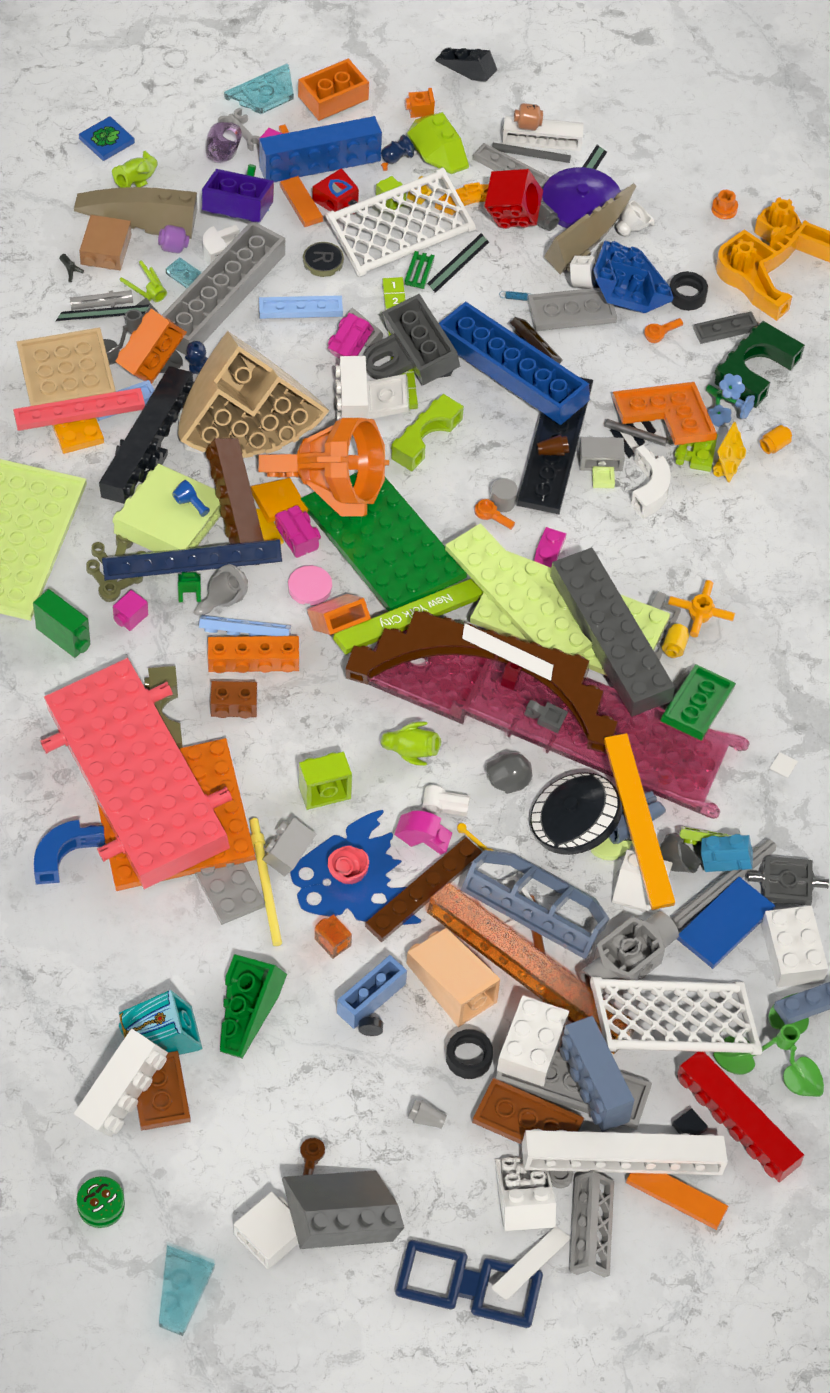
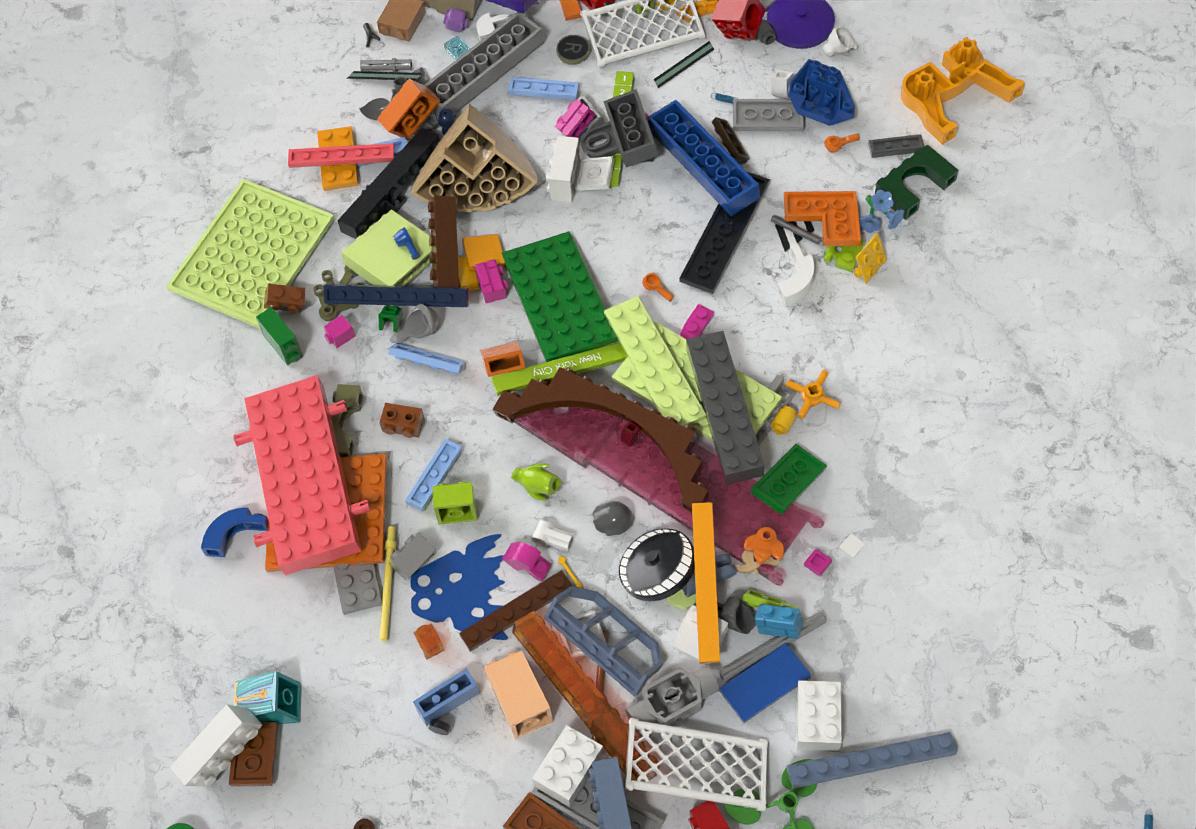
camera: 20 degrees right, 5 degrees up
(59, 578) = (284, 298): none -> dark orange brick
(65, 366) = (339, 118): tan plate -> none
(155, 290) = (430, 62): lime plant -> none
(249, 999) = (348, 683): green wedge -> none
(253, 654) = (427, 383): orange brick -> none
(288, 755) = (433, 474): none -> light blue plate
(310, 585) = (490, 329): bright pink tile -> none
(325, 465) = (516, 224): orange plate -> none
(348, 864) = (455, 580): coral hair -> none
(423, 258) = (653, 57): green tile -> none
(427, 1115) = (465, 814): light grey cone -> none
(442, 415) = (634, 195): lime arch -> none
(474, 1037) = (515, 750): black tyre -> none
(504, 494) = (669, 271): light grey piece -> none
(507, 651) = (628, 414): white sticker -> none
(549, 716) = (654, 475): dark grey plate -> none
(554, 446) = (720, 234): reddish brown cone -> none
(586, 232) = (795, 50): dark tan wedge -> none
(601, 452) = (761, 245): light grey brick -> none
(603, 477) = (758, 265): yellowish green tile -> none
(679, 684) = (777, 456): flat silver piece -> none
(679, 799) = (750, 565): none -> tan piece
(688, 279) = (870, 99): black tyre -> none
(691, 777) = (763, 547): none -> orange plate
(725, 205) = (921, 38): orange piece -> none
(751, 788) = (817, 562): none -> dark pink tile
(776, 439) = (914, 251): light orange brick -> none
(788, 880) = (828, 653): dark grey plate -> none

